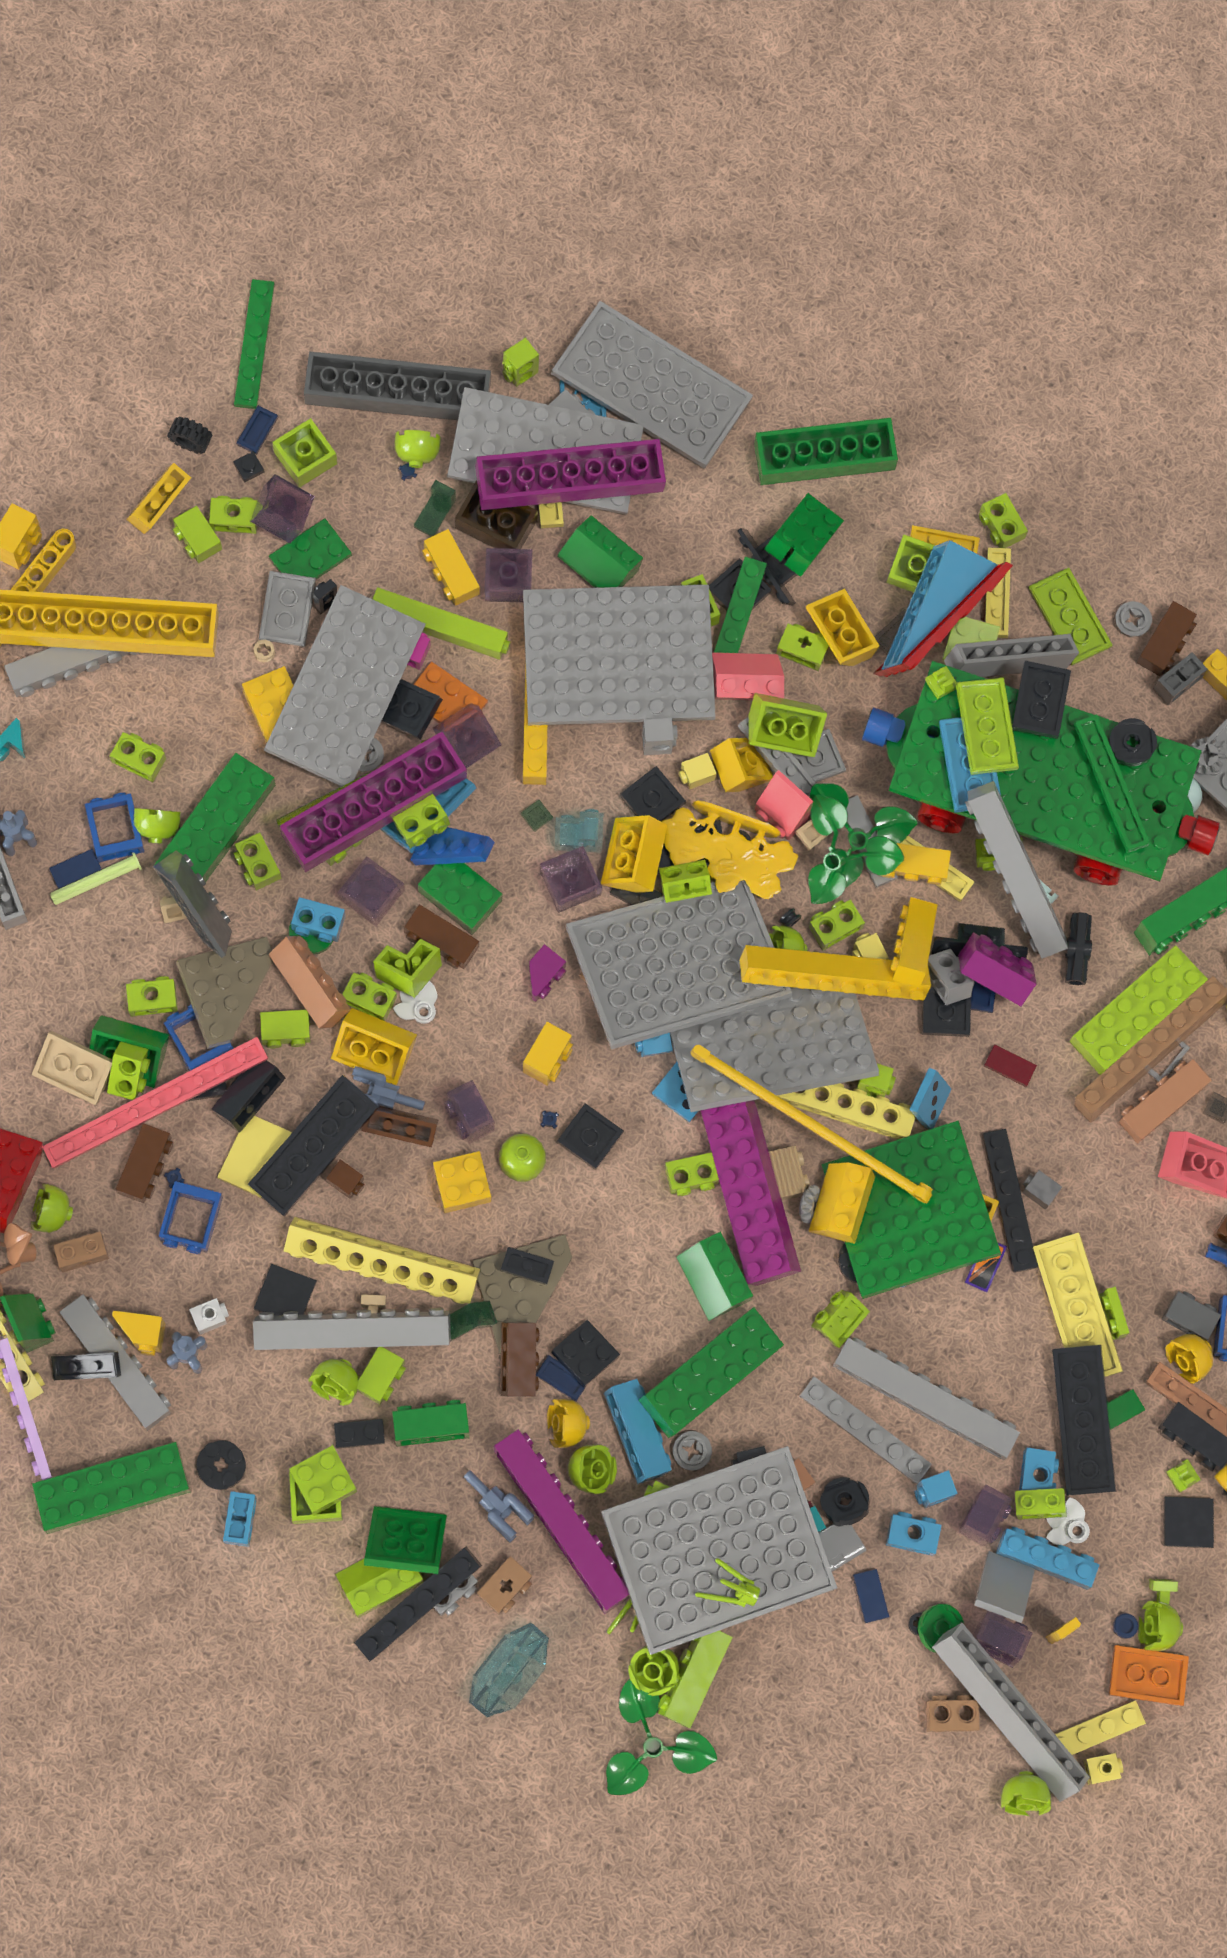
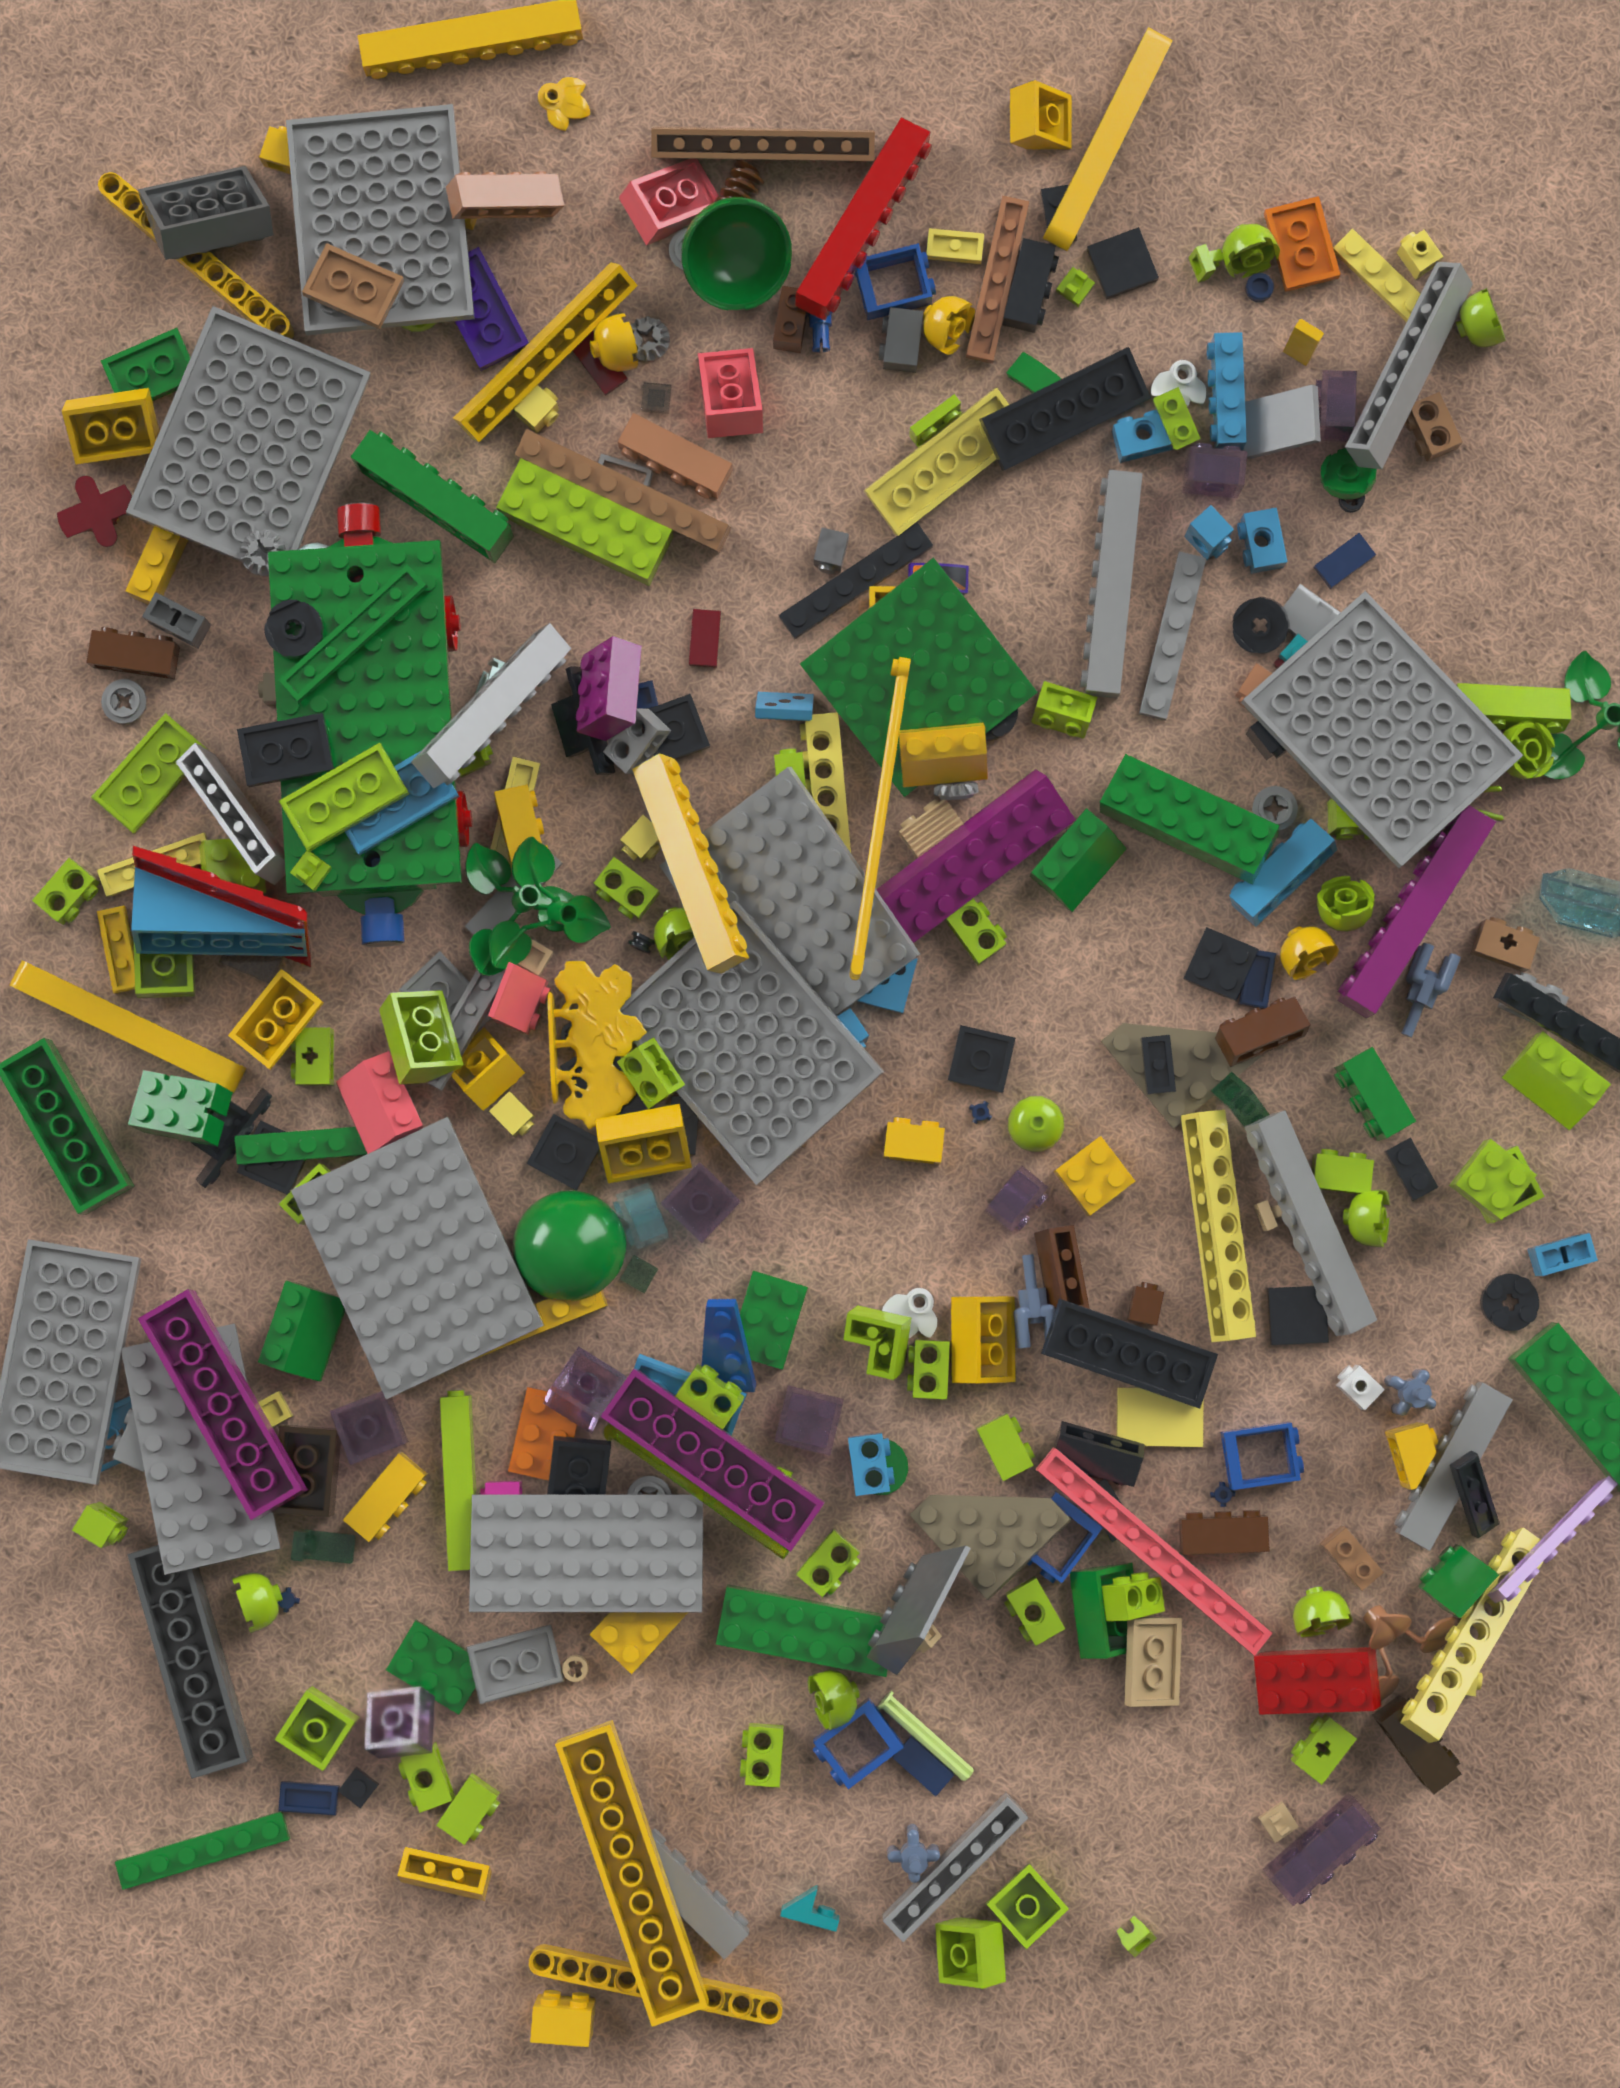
camera: 100 degrees left, 10 degrees up
(189, 435) = (352, 1873): black tyre -> none
(309, 981) = (944, 1442): nougat brick -> none
(324, 595) = (484, 1626): black plate -> none
(405, 1540) = (1509, 1067): green plate -> none
(453, 942) = (828, 1319): reddish brown brick -> none
(543, 970) = (818, 1189): magenta slope -> none
(580, 768) = (569, 1245): none -> green piece
(659, 736) = (492, 1173): light grey brick -> none
(746, 1591) = (1418, 681): lime plant -> none
(883, 523) = (127, 1026): none -> yellow beam
(914, 942) = (615, 791): yellow brick -> none
(1078, 948) = (540, 613): black piece -> none

